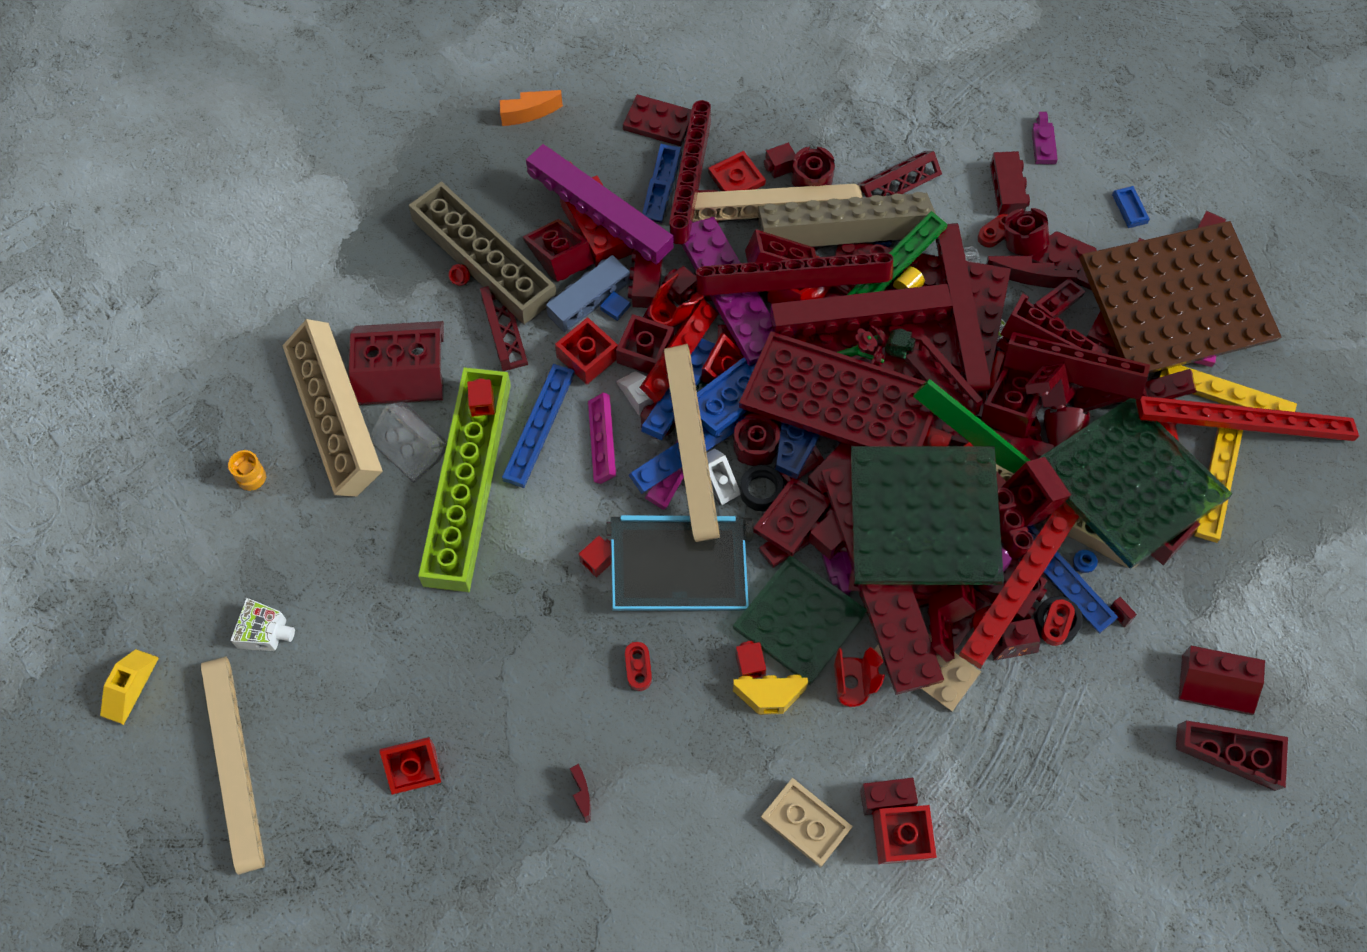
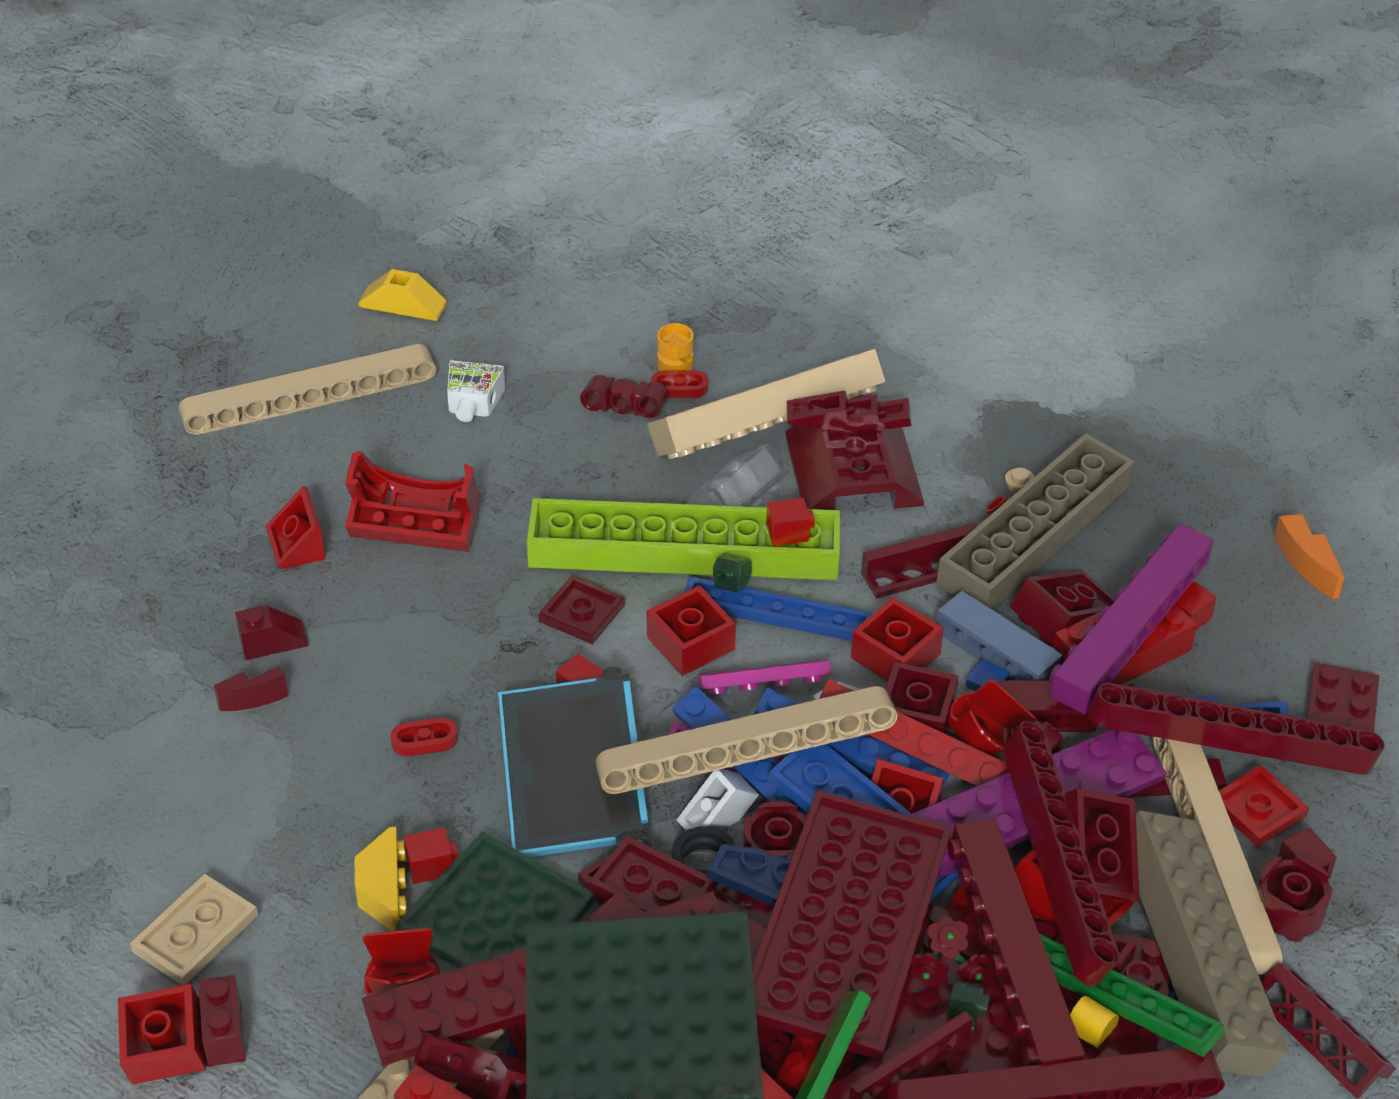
camera: 85 degrees right, 20 degrees down
(282, 474) = (683, 383): none -> red plate
(294, 511) = (611, 396): none -> dark red piece
(366, 348) = (838, 413): none -> dark red slope
(391, 662) = (417, 508): none -> red piece
(428, 260) = (1017, 478): none -> tan plate
(510, 446) = (732, 572): none -> clear green plate
(518, 556) = (581, 609): none -> dark red tile
(521, 782) = (268, 632): none -> dark red slope
(560, 478) = (691, 630): none -> red brick

